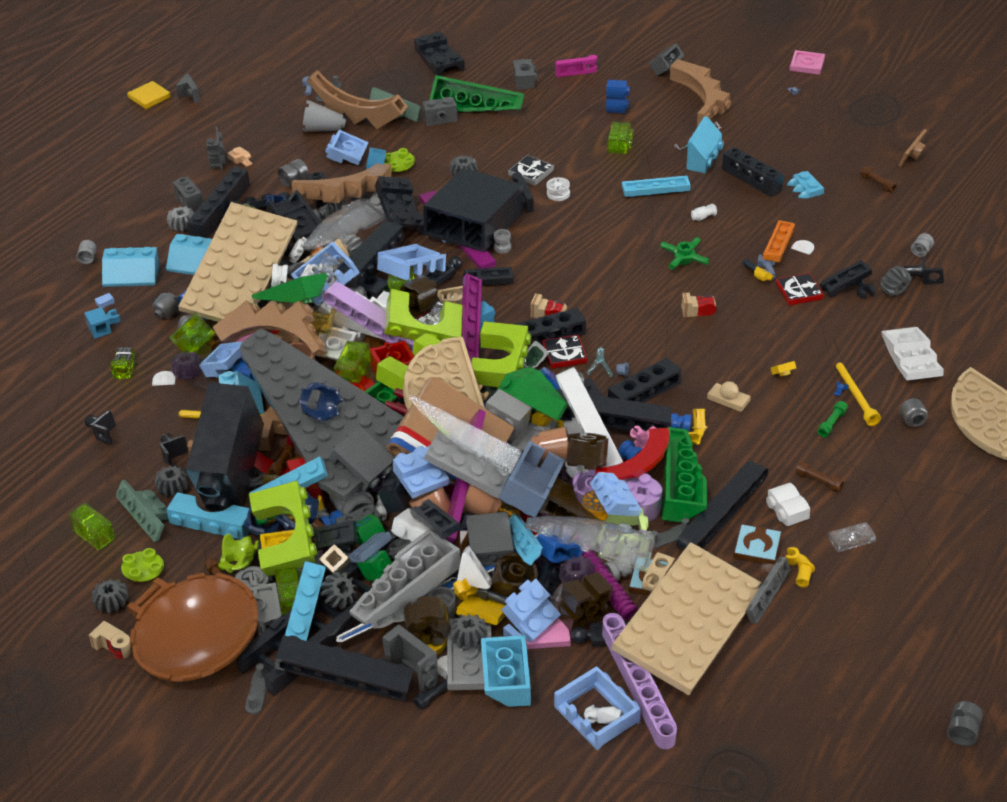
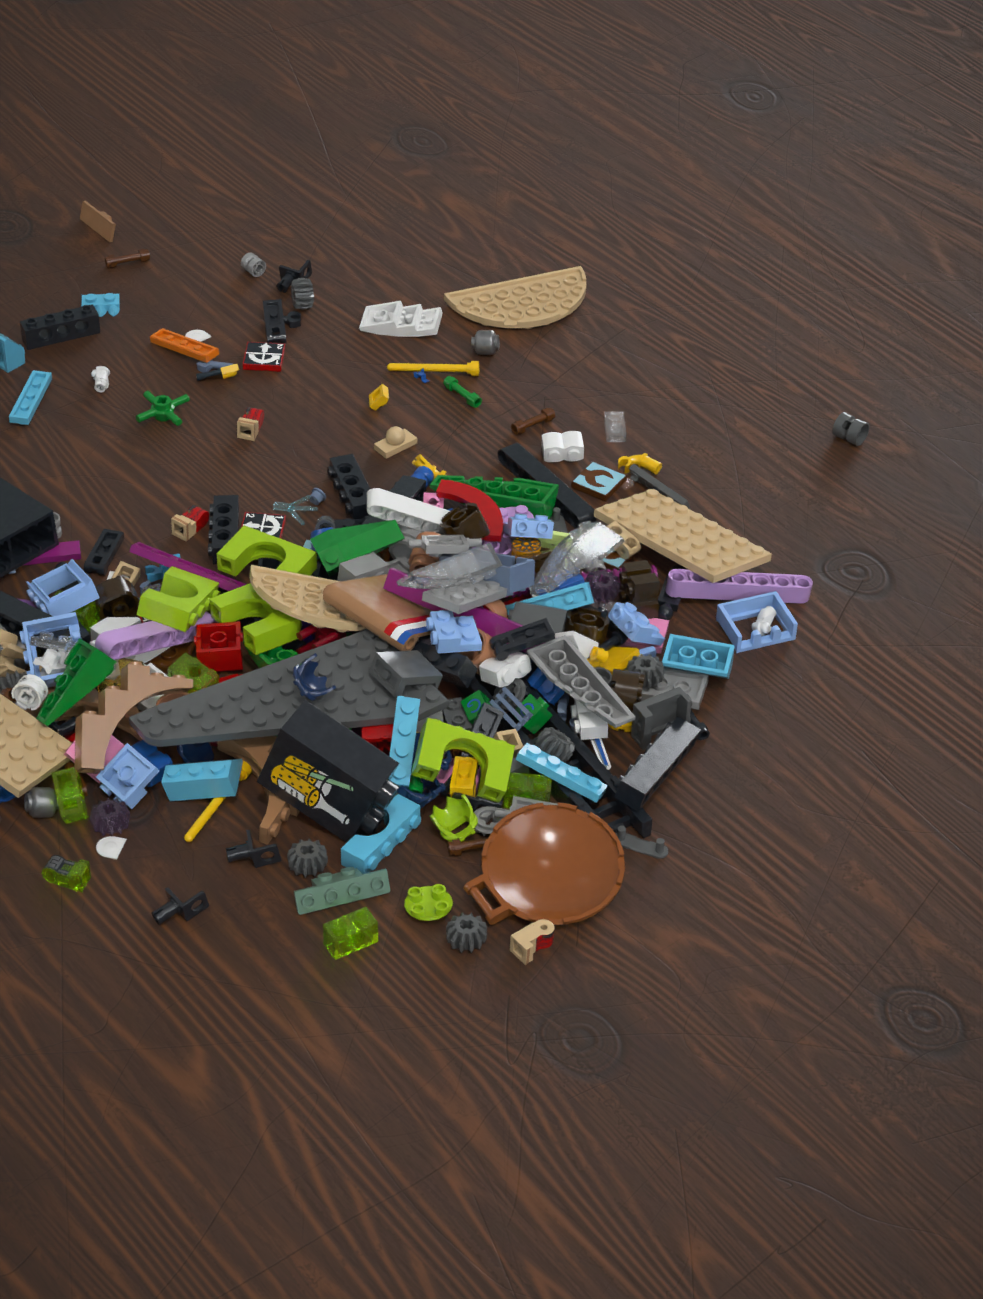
camera: 75 degrees left, 0 degrees up
(542, 438) = (444, 544): none -> light grey plate

